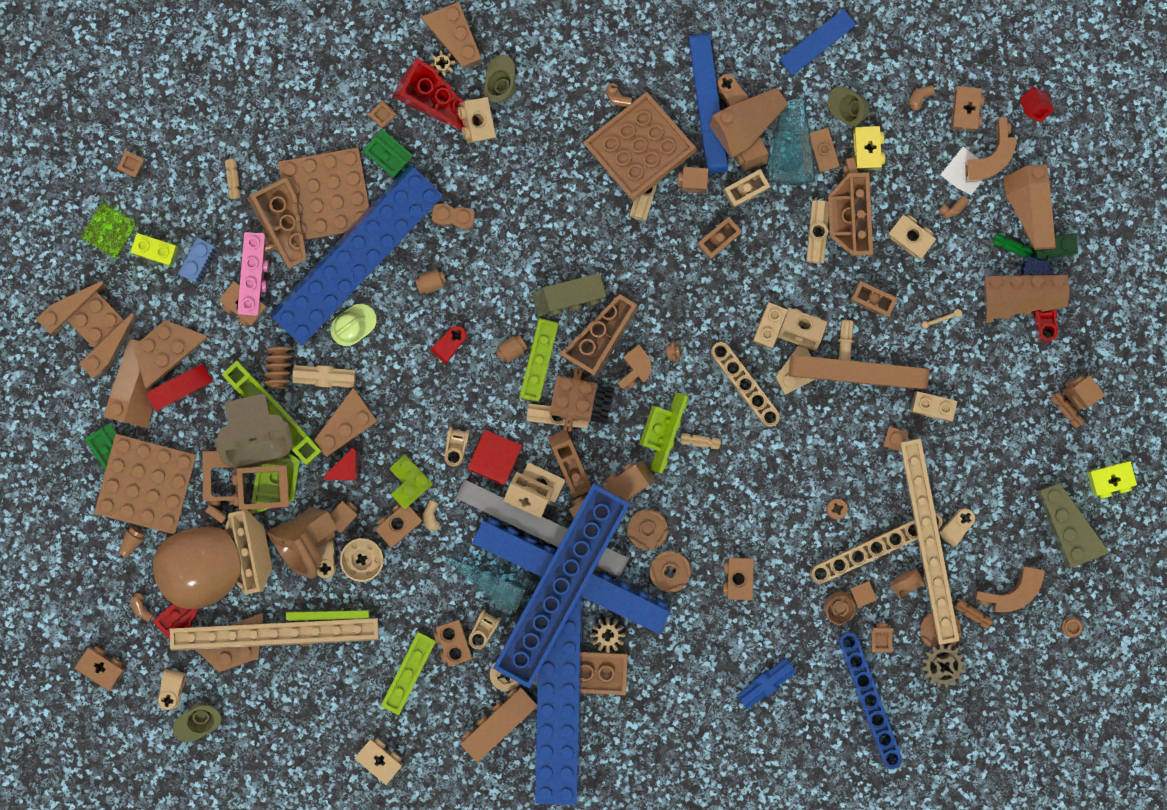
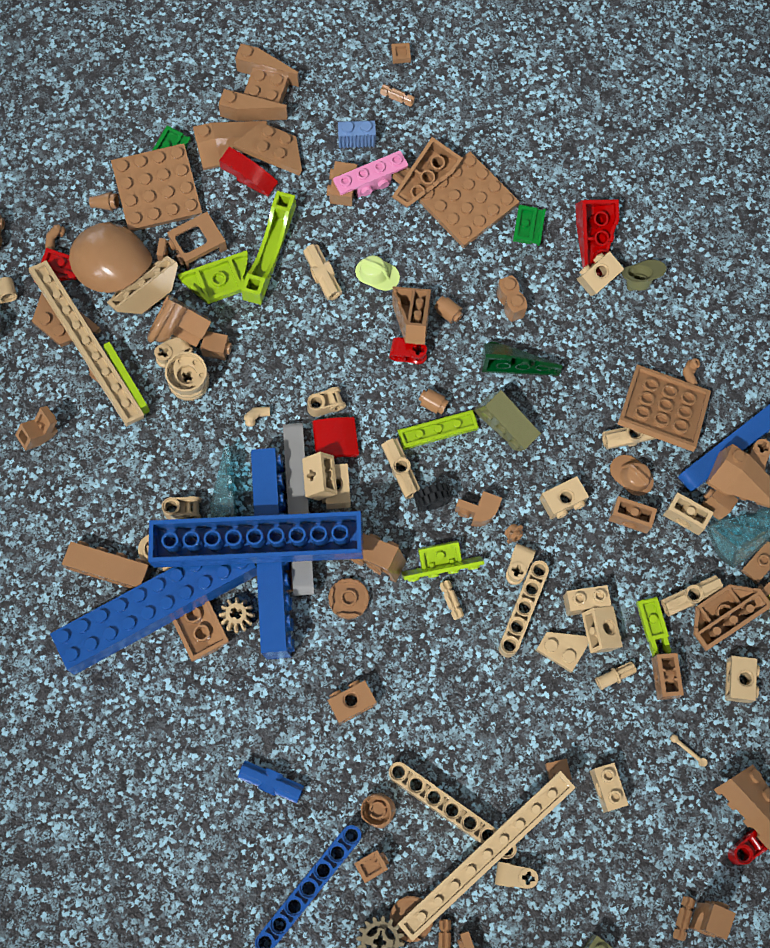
camera: 60 degrees right, 15 degrees down
(109, 230) = (340, 65): clear neon green tile -> none
(155, 250) = (346, 100): neon yellow brick -> none
(175, 194) = (397, 95): none -> medium nougat axle
(232, 178) = (435, 128): tan axle -> none
(238, 499) = (212, 283): medium nougat window -> none
(252, 434) = (240, 234): dark tan piece -> none
(277, 367) = (308, 232): medium nougat piece -> none
(334, 721) = (37, 431): none -> medium nougat brick
(346, 424) = (293, 307): medium nougat wedge -> none
(346, 469) = (257, 323): red slope -> none
(356, 255) = (434, 240): blue brick -> none
(382, 114) = (556, 207): medium nougat tile -> none
(382, 771) = (18, 475): tan brick -> none
(389, 533) = (242, 400): medium nougat brick -> none
(408, 673) = (111, 468): lime plate -> none
(413, 481) = (275, 384): lime plate -> none
(418, 319) = (412, 312): none -> medium nougat wedge
(438, 61) = (626, 227): tan gear -> none
(454, 34) = (655, 222): medium nougat wedge -> none
(459, 641) = (161, 492): medium nougat brick -> none
(509, 259) = (506, 359): none -> dark green wedge
(569, 463) = (371, 494): medium nougat slope -> none
(573, 399) = (422, 469): medium nougat plate -> none
(601, 336) = (489, 465): medium nougat wedge -> none
(660, 565) = (335, 638): medium nougat plate -> none
(666, 275) = (572, 489): none -> tan brick
(680, 212) = (632, 475): none -> medium nougat piece
(693, 180) = (666, 465): medium nougat brick -> none
(700, 360) = (520, 561): none -> tan piece
(822, 280) = (653, 624): none -> lime hinge
(833, 509) = (462, 757): medium nougat wheel -> none
(859, 372) = (597, 702): medium nougat beam -> none
(863, 594) = (402, 824): medium nougat tile -> none
(907, 582) = (436, 859): medium nougat hair -> none

